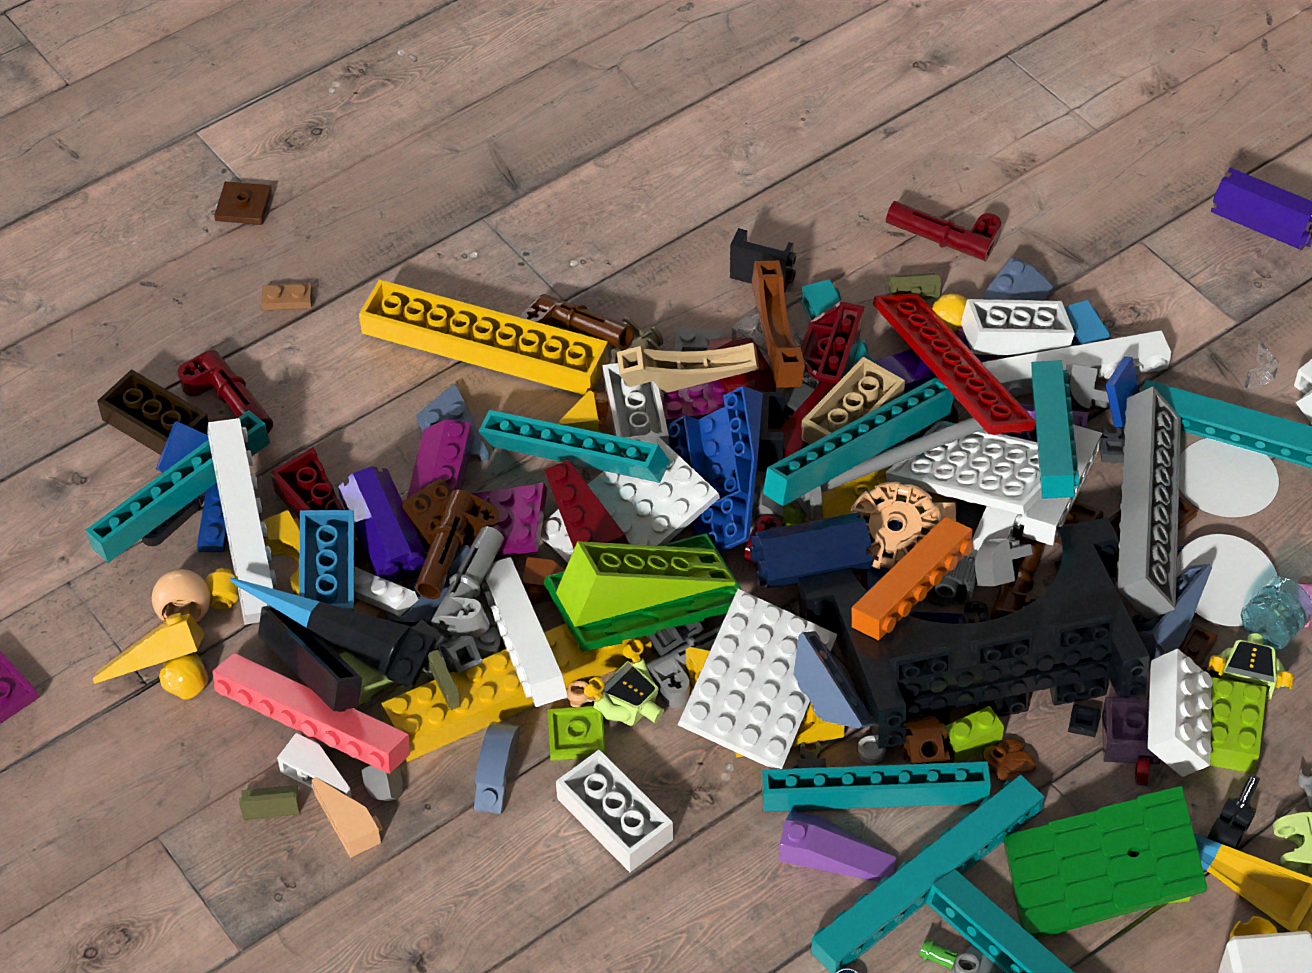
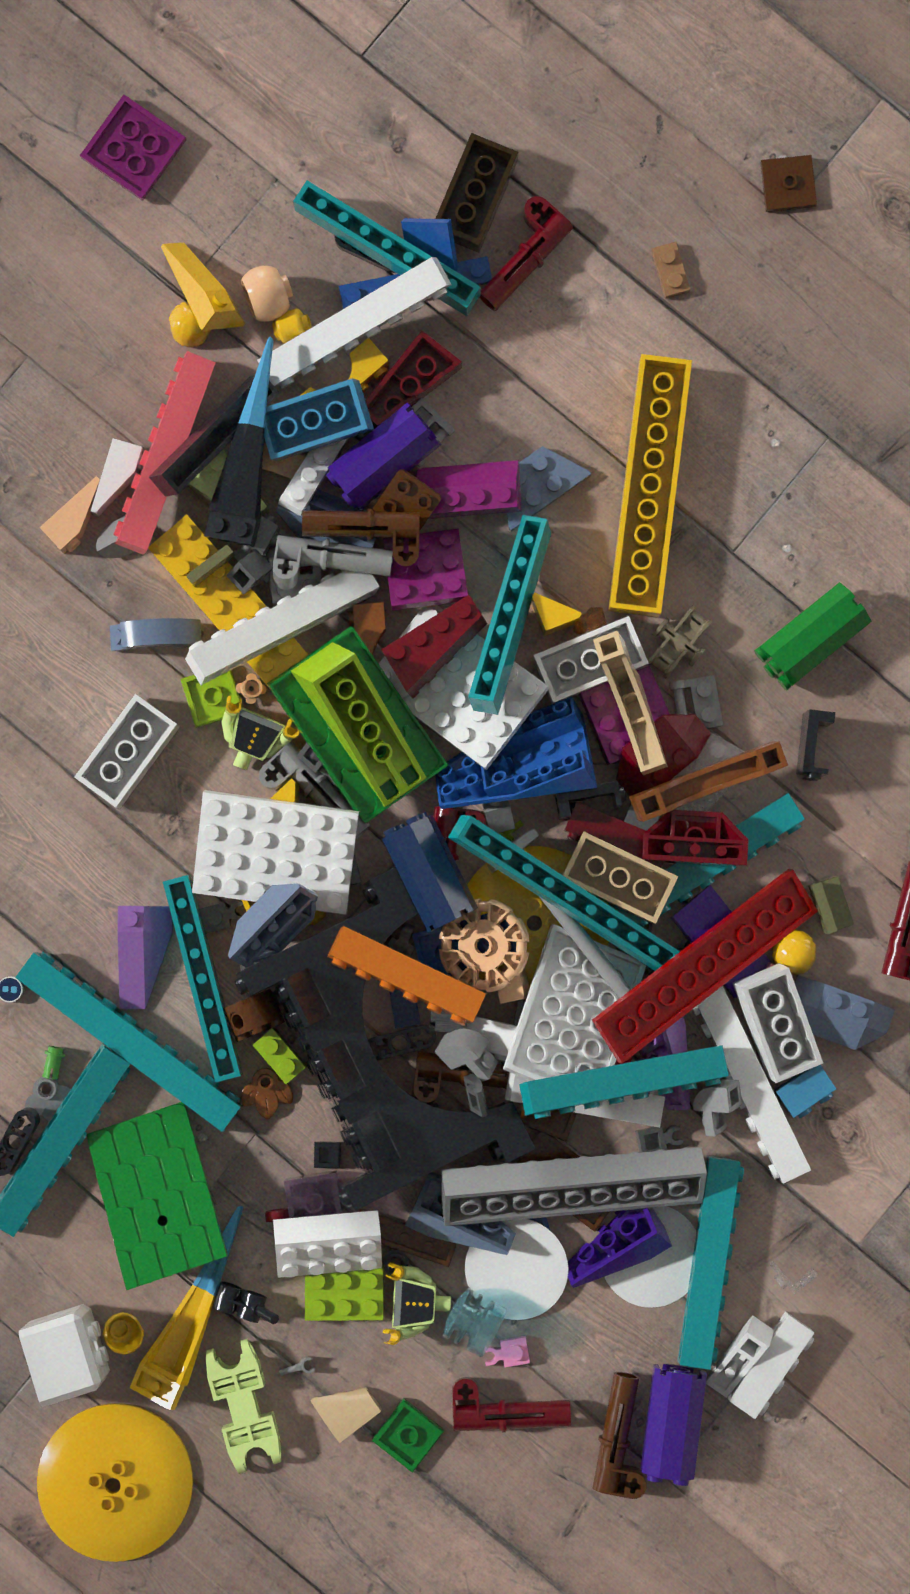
camera: 80 degrees right, 35 degrees up
(269, 802) = (79, 444): olive panel -> none
(578, 319) = (702, 551): reddish brown piece -> none
(662, 245) = (813, 636): none -> green brick
(1044, 554) = (476, 1095): none -> dark grey slope
(1119, 387) = (716, 1141): blue tile -> none
(1212, 489) = (624, 1242): none -> dark purple wedge

